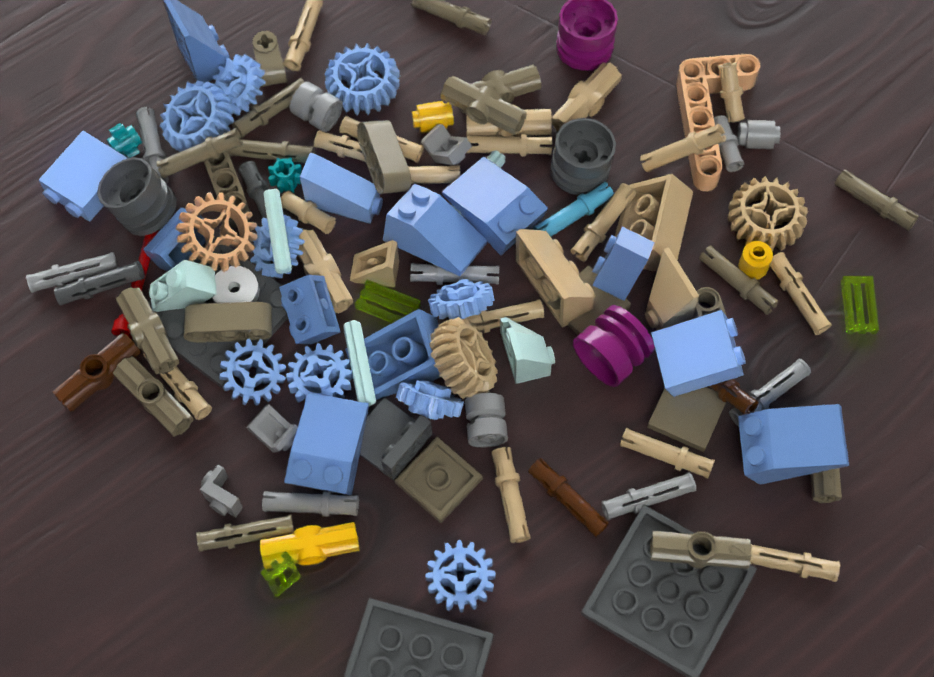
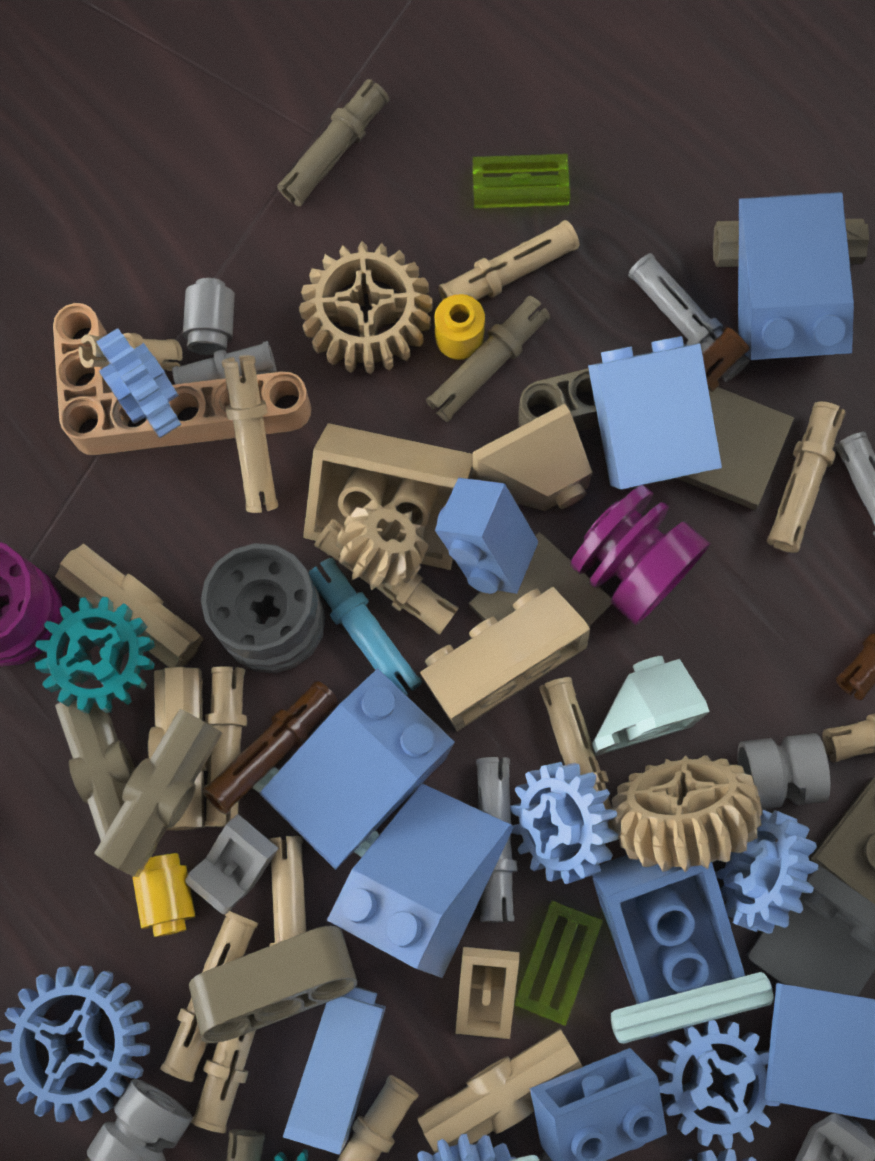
camera: 90 degrees left, 10 degrees up
(505, 160) = (288, 730): none -> reddish brown pin
(557, 77) = (76, 665): none -> teal gear
(608, 210) = (382, 545): none -> tan gear
(705, 84) = (138, 383): none -> light blue gear

